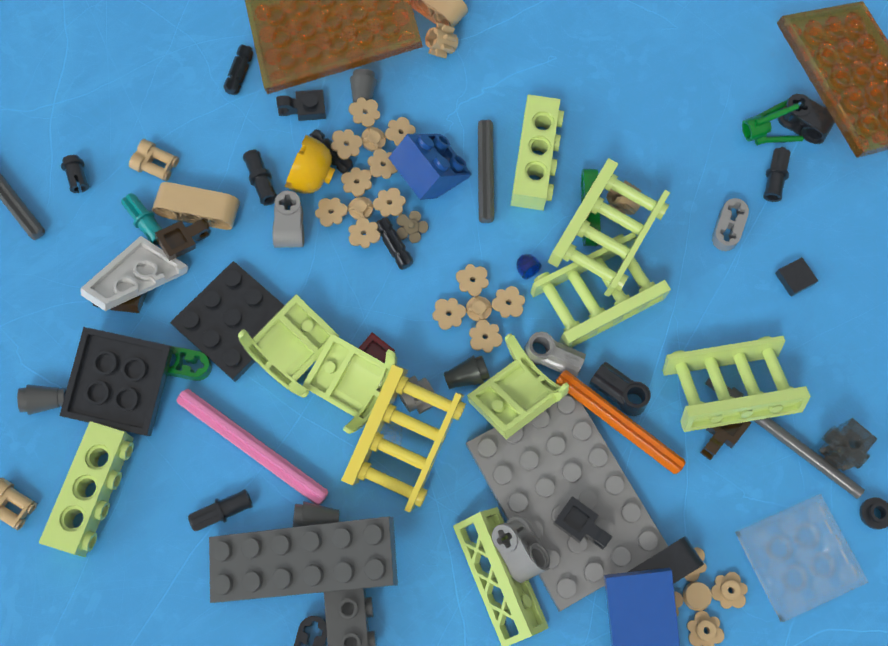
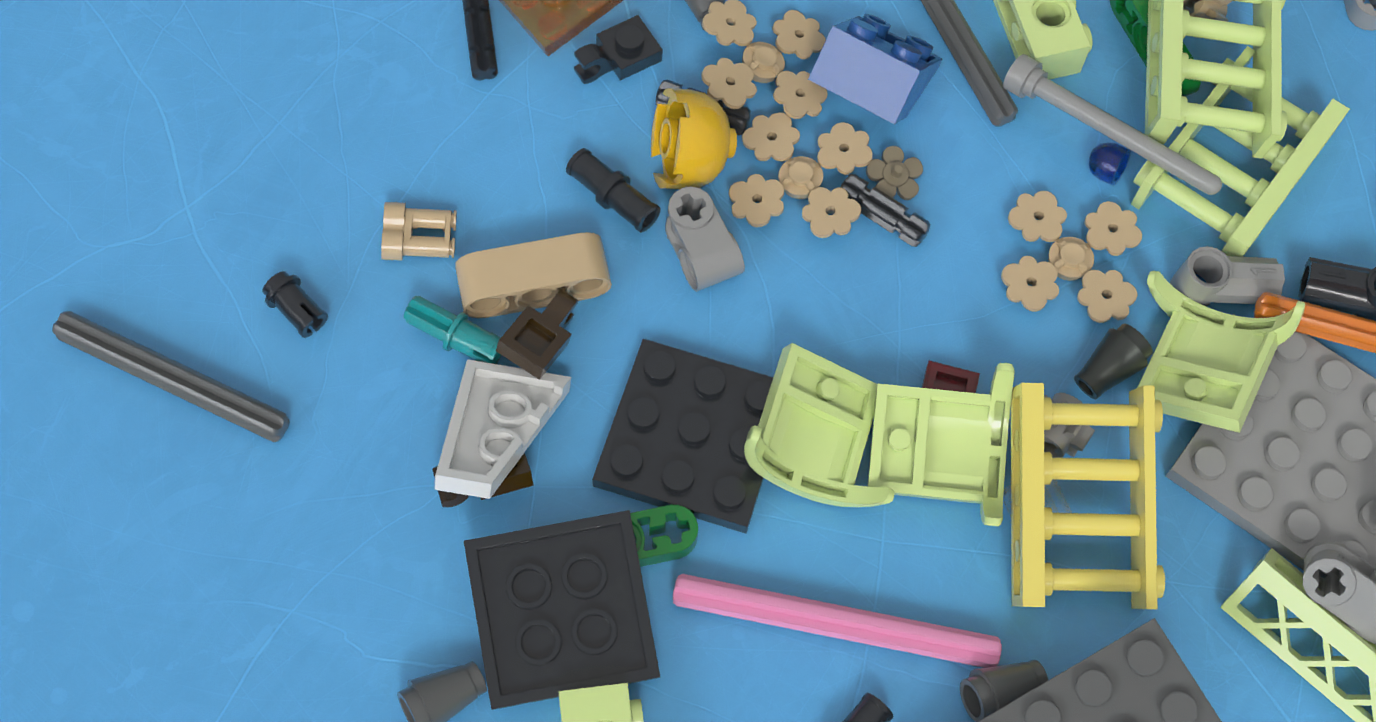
camera: 25 degrees left, 5 degrees down
(504, 202) = (1029, 80): none -> light grey piece

